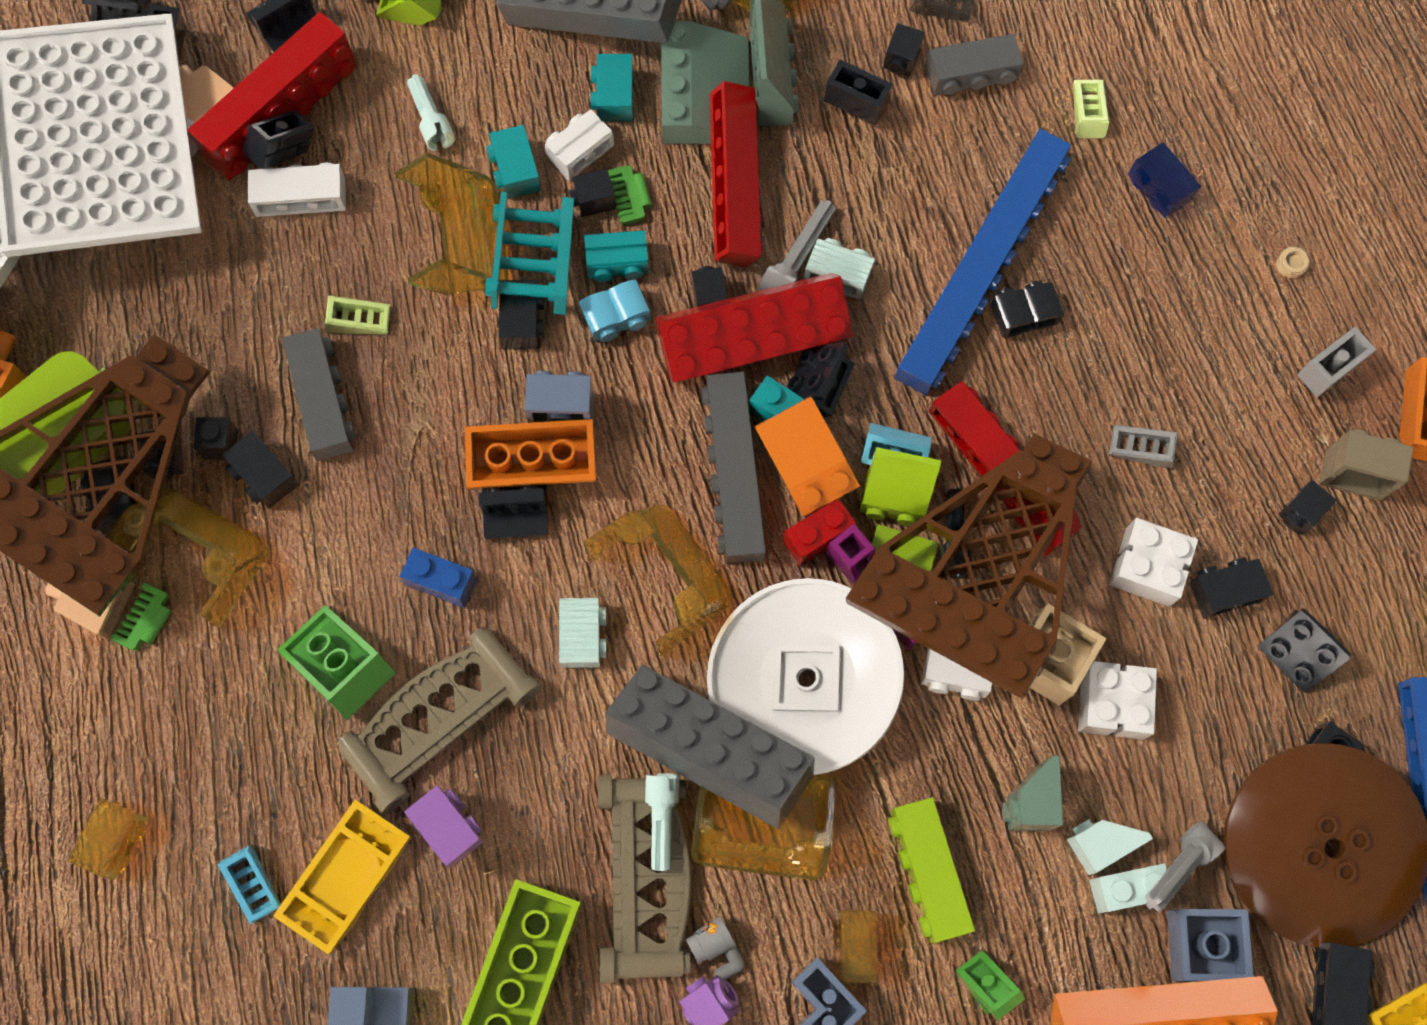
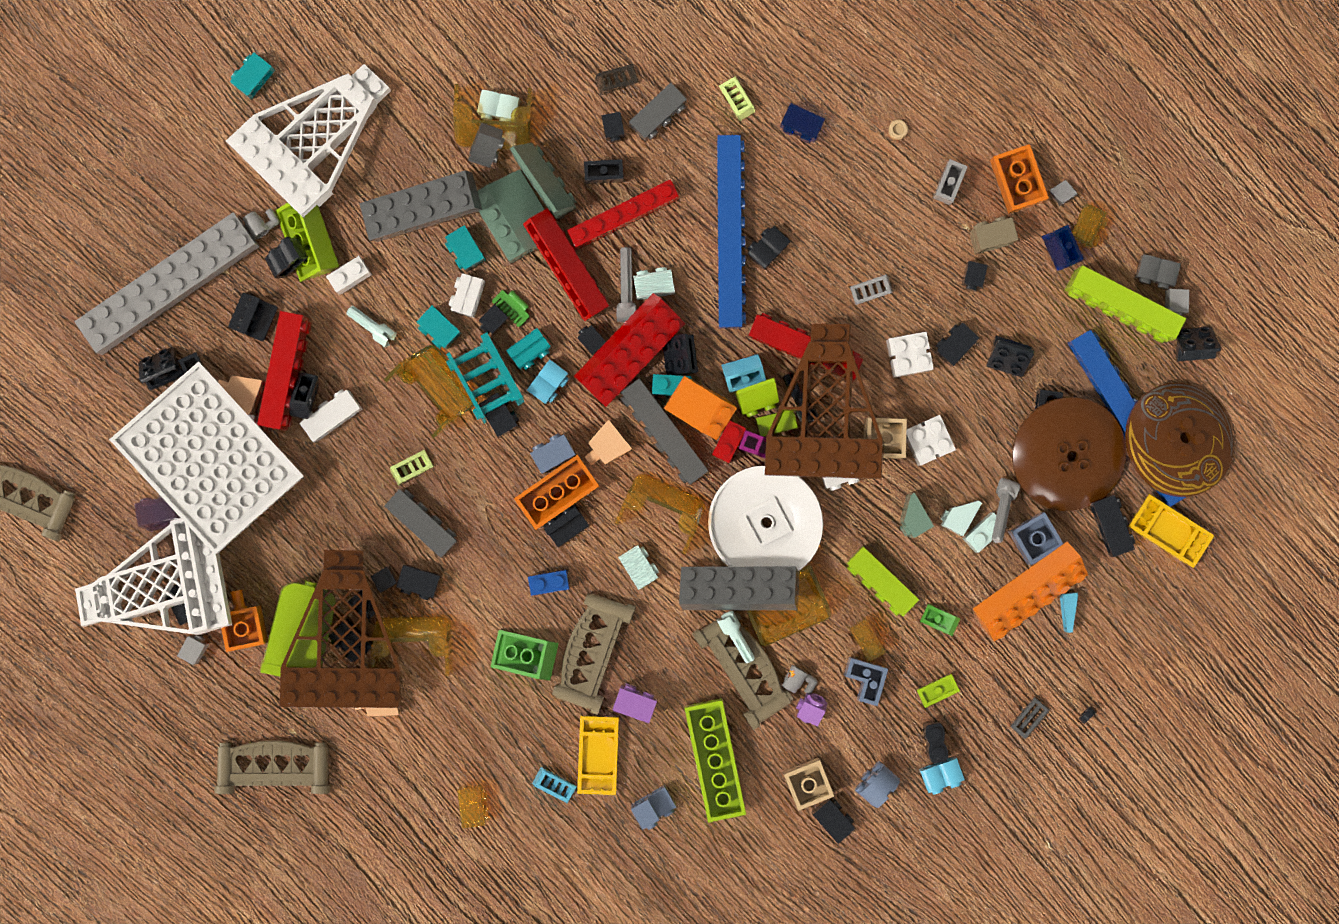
camera: 30 degrees left, 15 degrees up
(149, 623) = (416, 691): bright green piece -> none
(442, 36) = (349, 275): none -> white brick
(643, 439) = (607, 445): none -> light nougat torso
(851, 159) = (623, 214): none -> red brick

